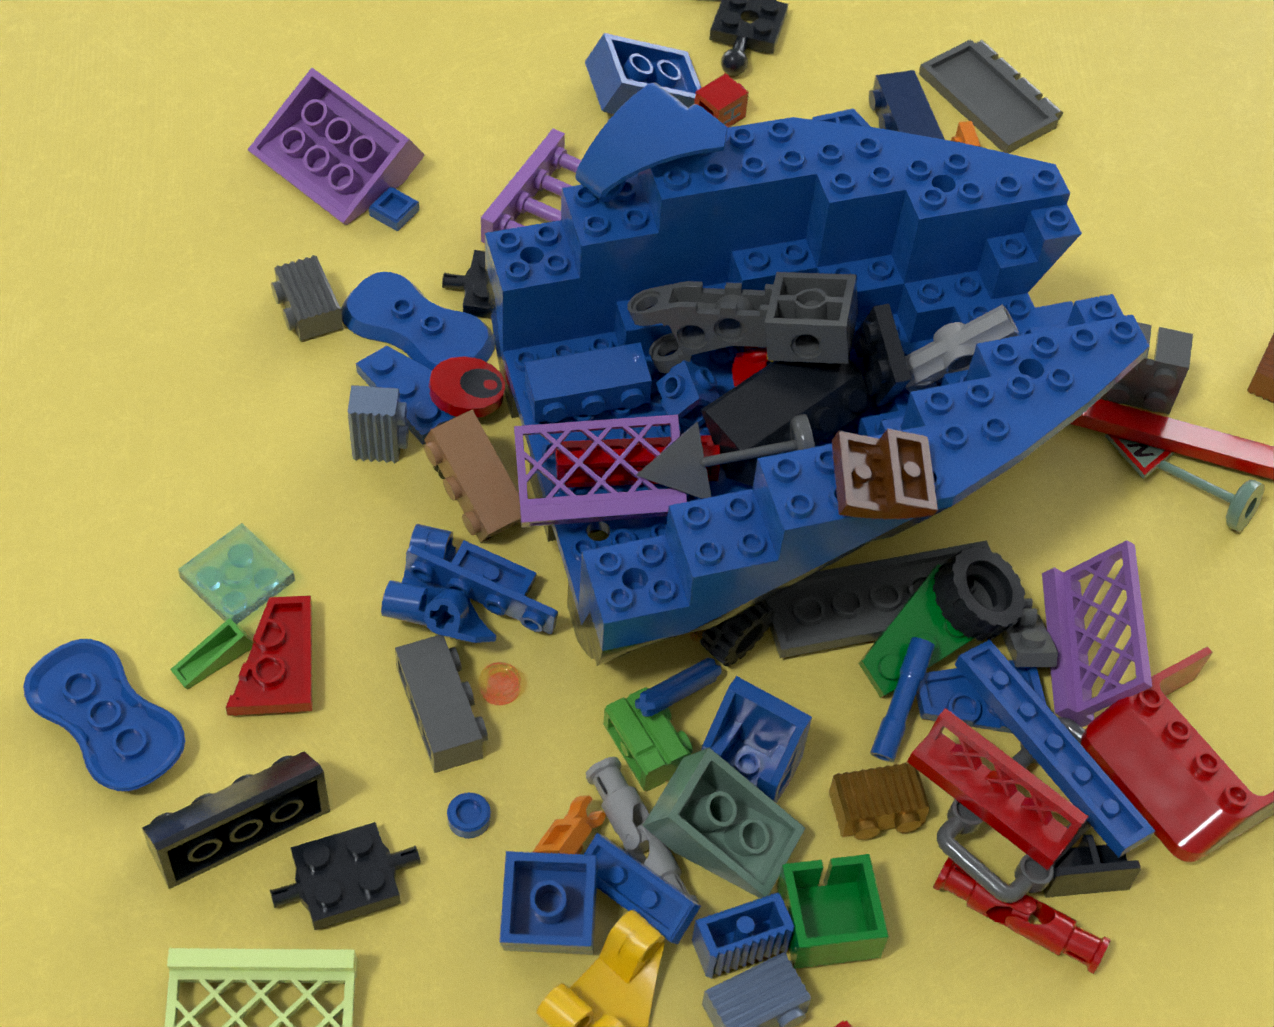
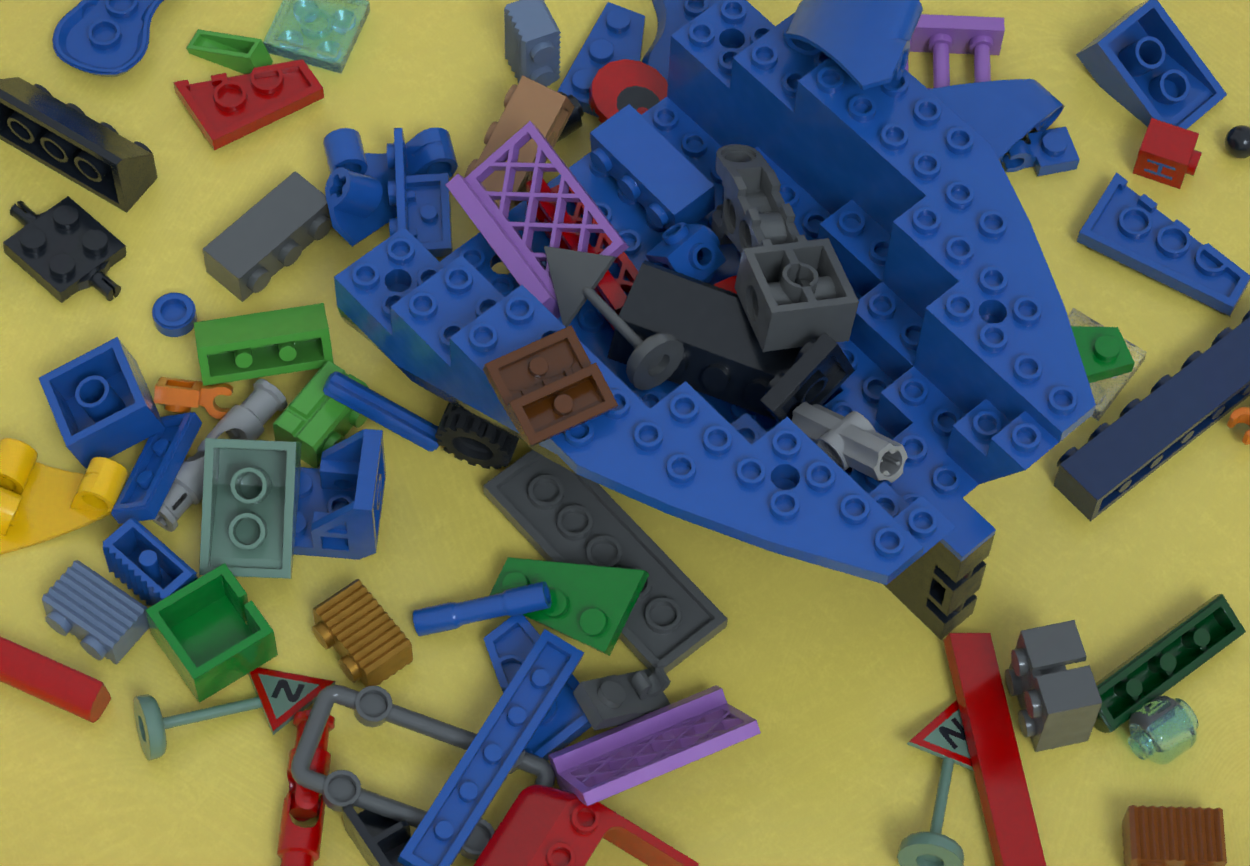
camera: 65 degrees right, 5 degrees up
(499, 683) = (319, 277): clear yellow tile -> none
(554, 751) = (263, 344): none -> bright green brick
(903, 888) = (277, 693): none -> sand green piece
(961, 607) = (665, 613): black tyre -> none
(993, 794) = (395, 715): red fence -> none
(1134, 288) = (1166, 661): none -> dark green brick
(1201, 322) = (1162, 730): none -> clear light blue head

